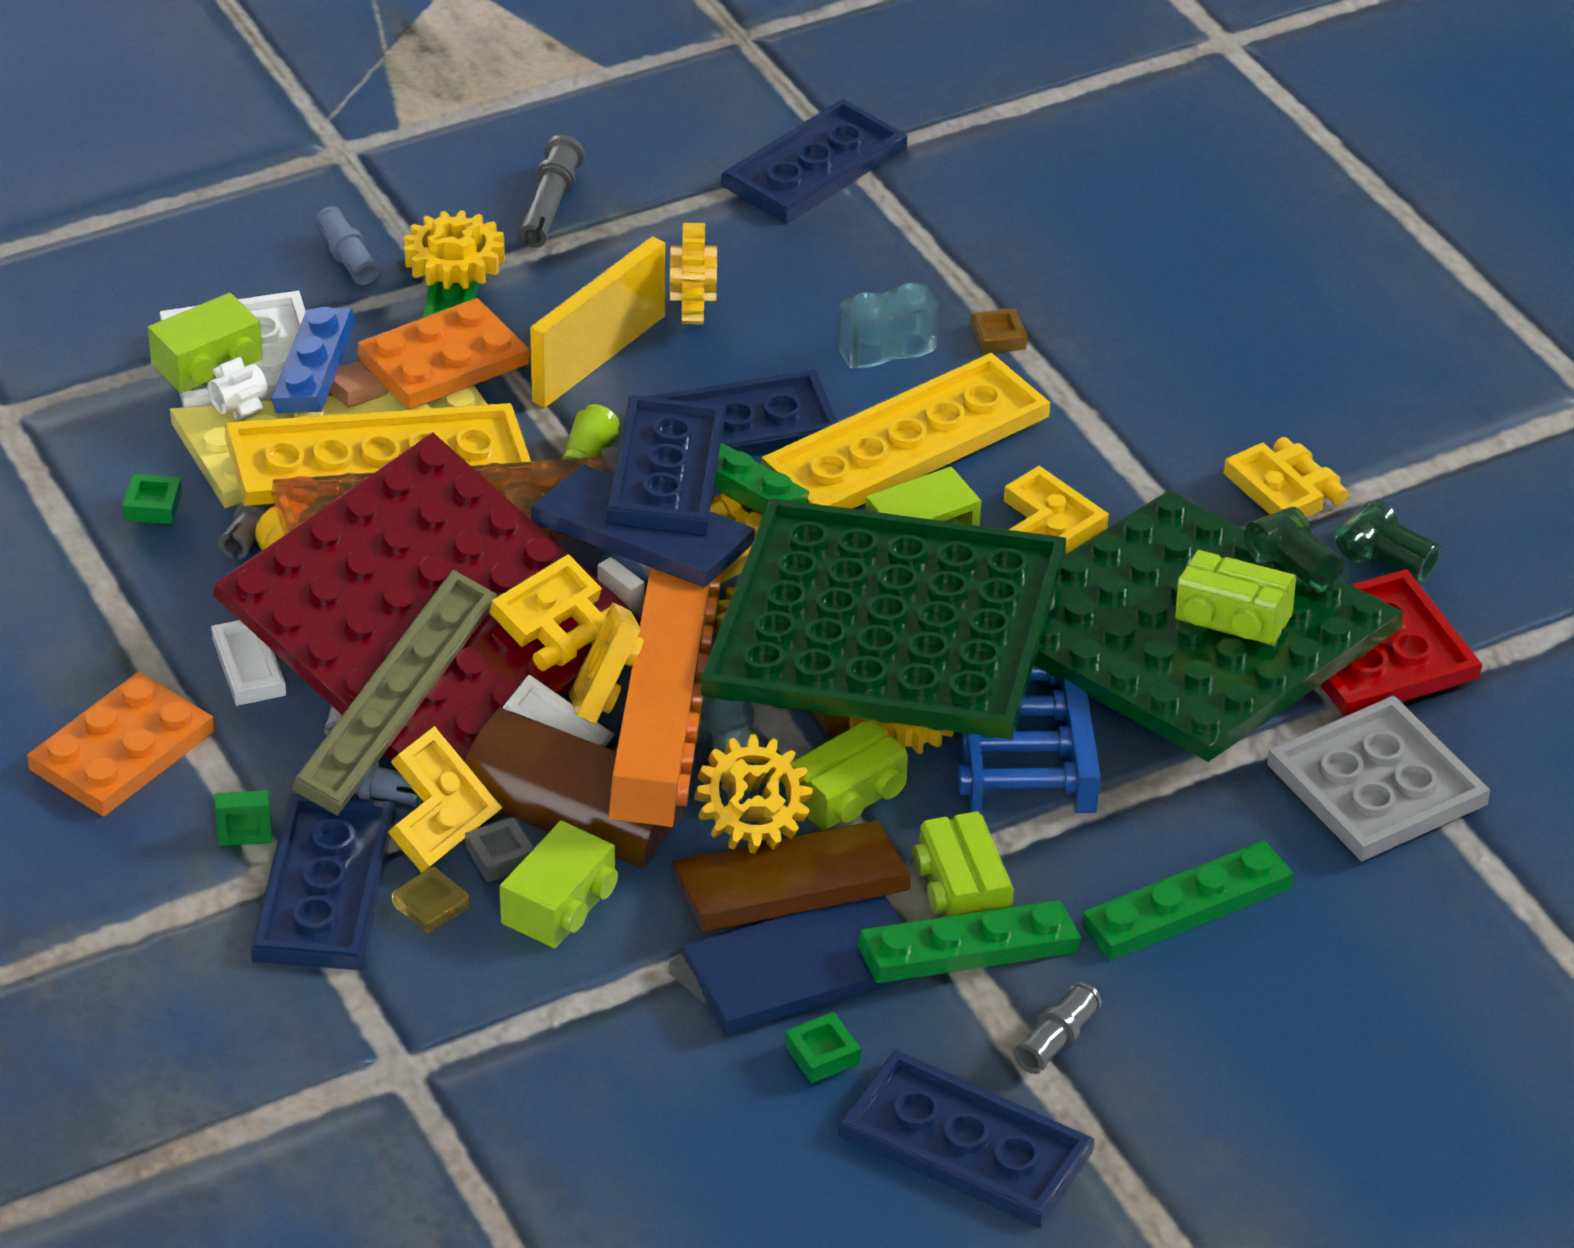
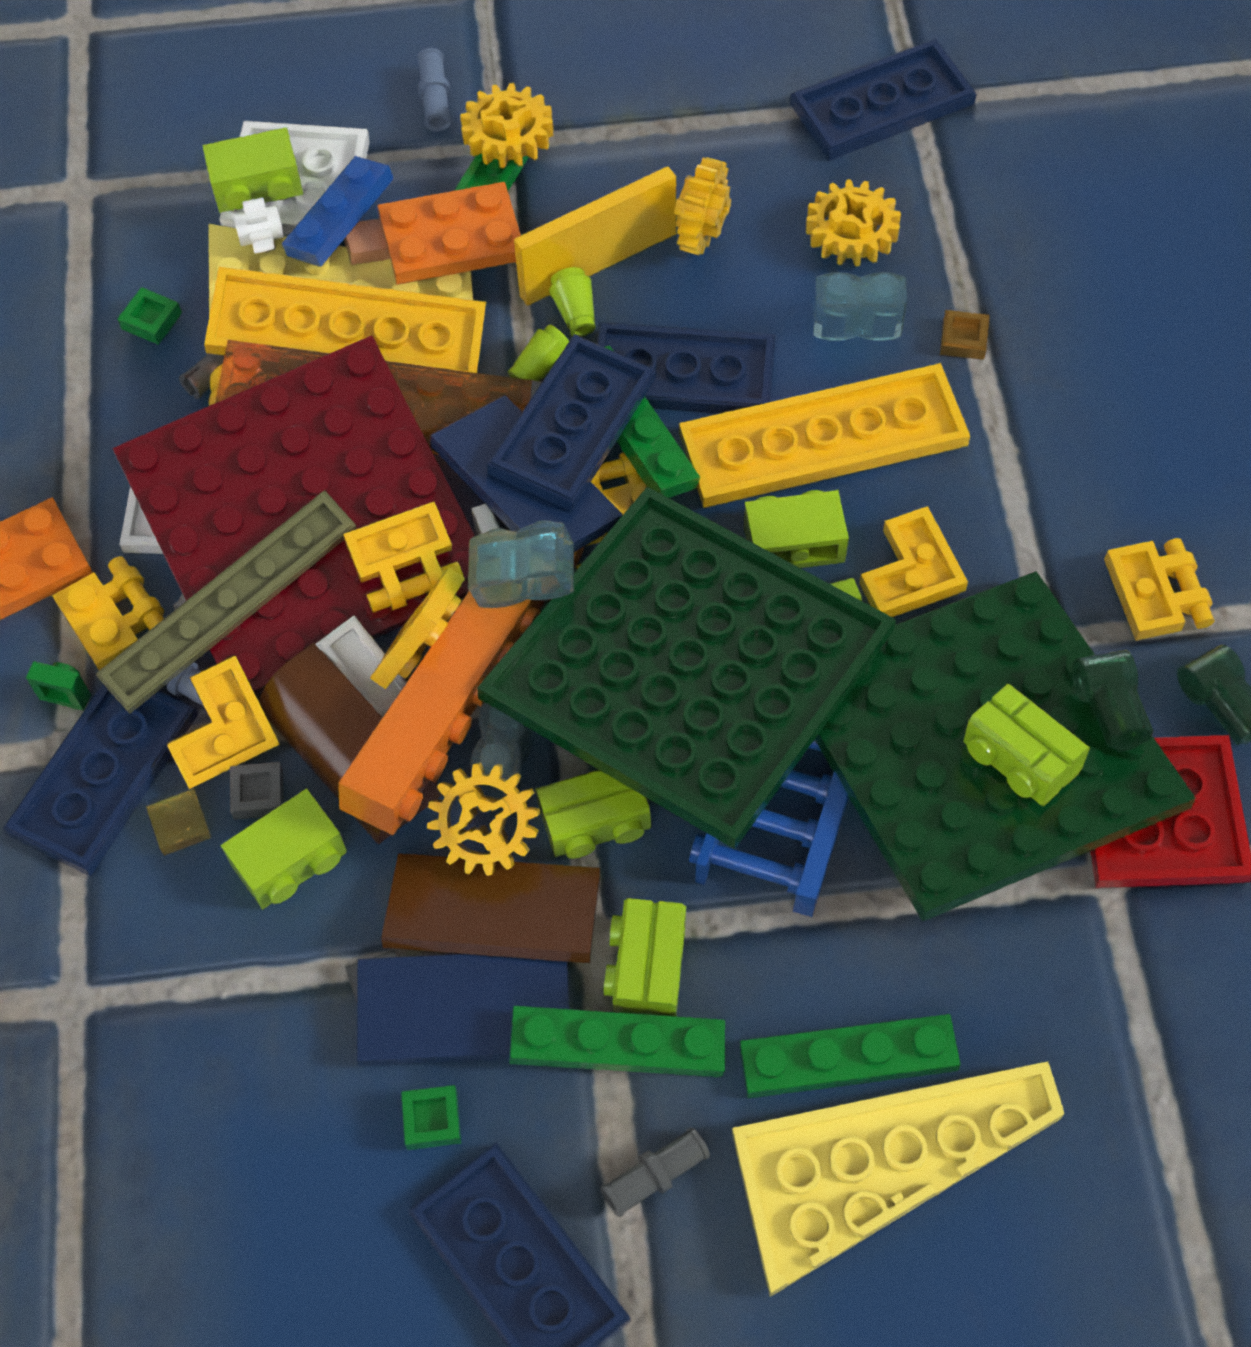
camera: 25 degrees right, 20 degrees up
(245, 761) = (95, 617): none -> yellow plate
(554, 178) = (640, 64): dark grey pin -> none
(595, 383) = (574, 299): none -> lime cone
(688, 576) = (521, 564): none -> clear light blue brick
(843, 261) = (853, 222): none -> yellow gear
(1243, 973) = (856, 1167): none -> light yellow wing
(1378, 778) = (1094, 976): light grey plate -> none

